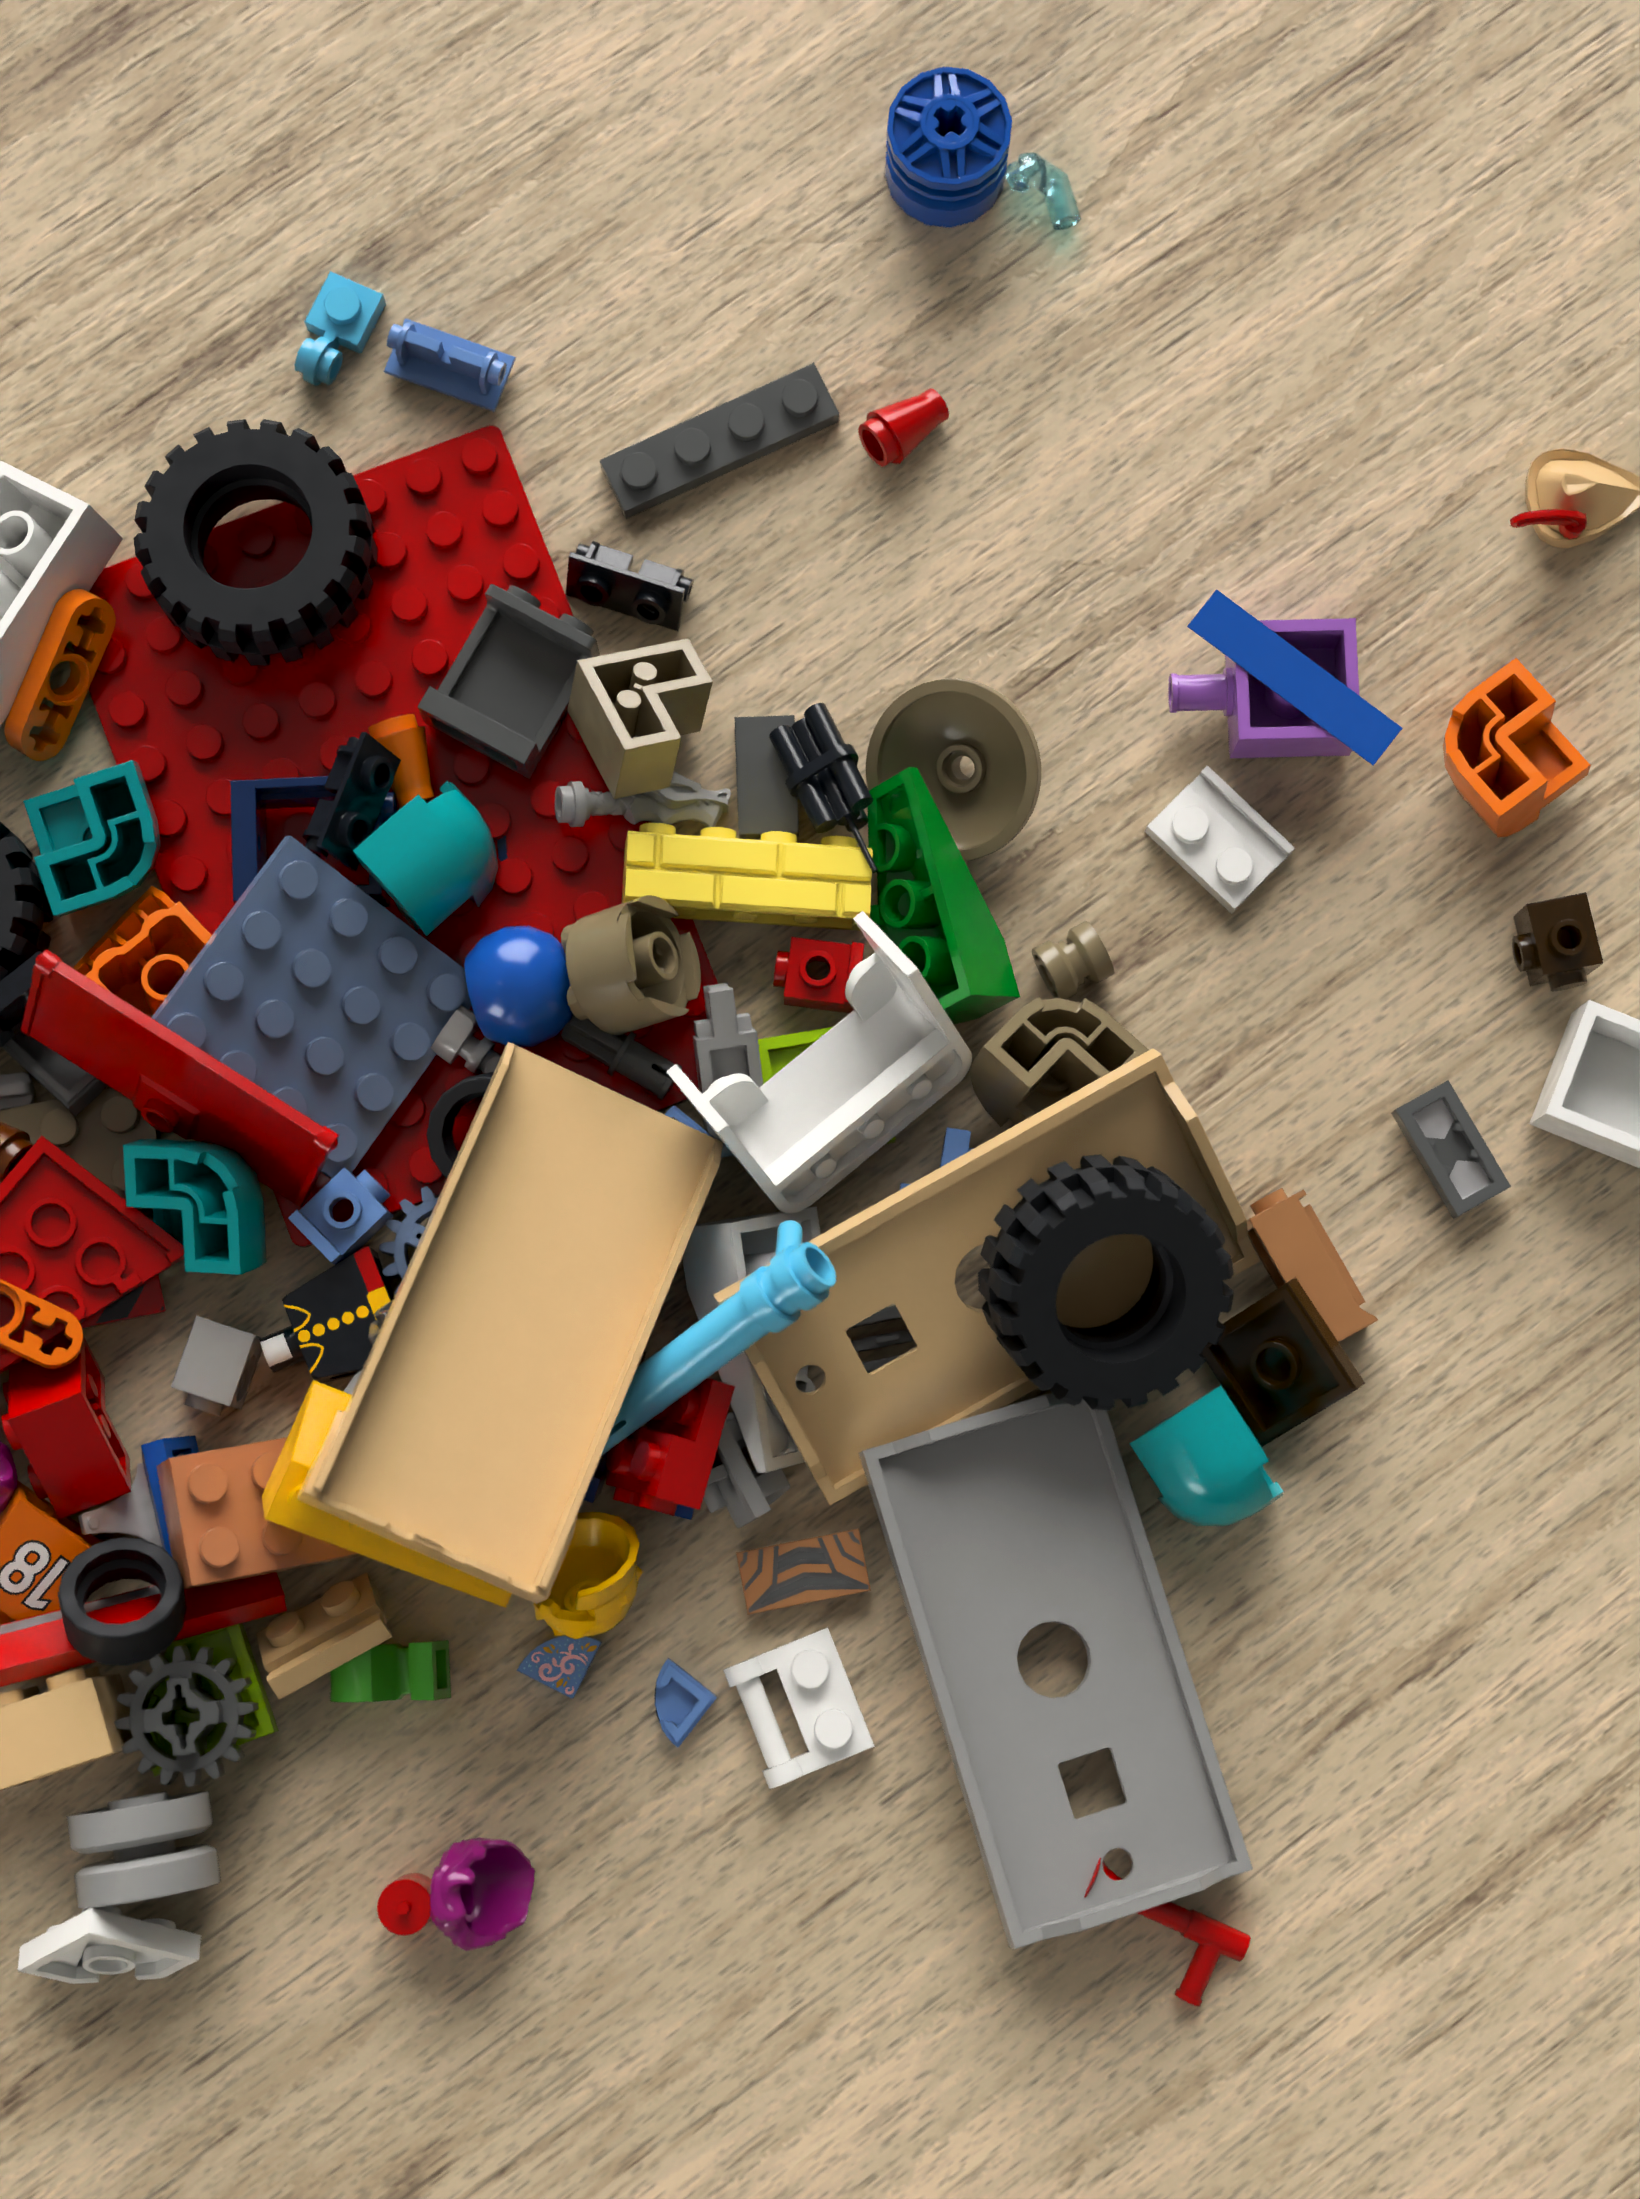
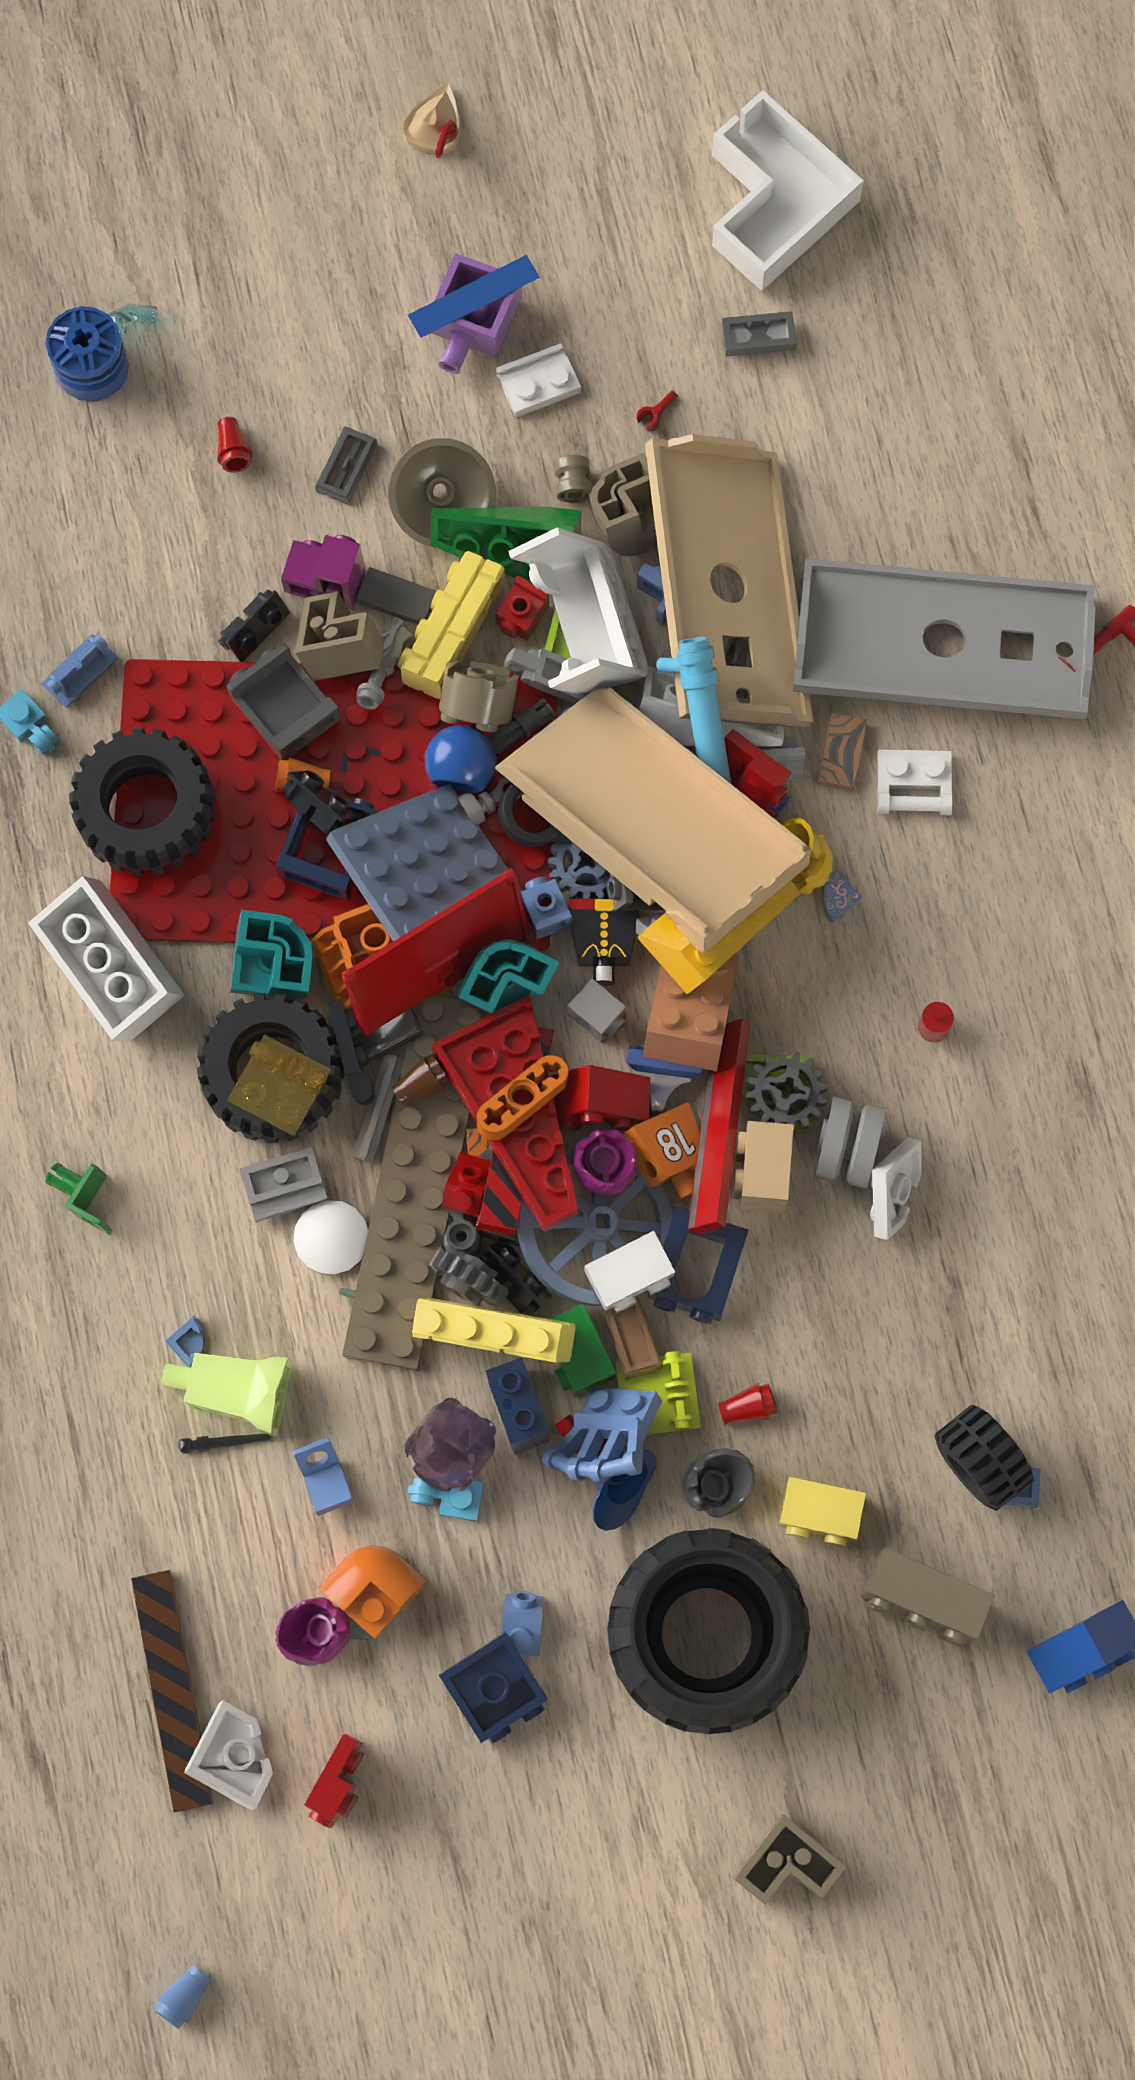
camera: 65 degrees left, 5 degrees down
(50, 652) = (165, 944): orange beam -> none
(108, 1563) = (727, 1109): black tyre -> none
(322, 1635) = (772, 1009): tan plate -> none
(394, 1671) = (806, 985): bright green leg -> none
(432, 857) = (370, 774): teal brick -> none
(481, 1891) = (944, 979): magenta hair -> none
(680, 1701) = (885, 844): medium blue tile -> none
(719, 440) = (192, 545): dark grey plate -> none
(750, 650) = (324, 568): none -> magenta brick
(824, 774) = (412, 559): black piece -> none
(949, 632) = (335, 490): none -> dark grey tile
(1151, 1340) = (789, 498): black tyre -> none
(1207, 1463) = (873, 515): teal brick -> none
(1250, 1043) = (656, 411): none -> red hand
(1281, 1363) = (835, 462): dark brown tile -> none
(1296, 1245) = (794, 429): medium nougat window -> none
(1508, 751) = (561, 213): orange brick -> none
(1557, 942) = (672, 234): dark brown brick -> none

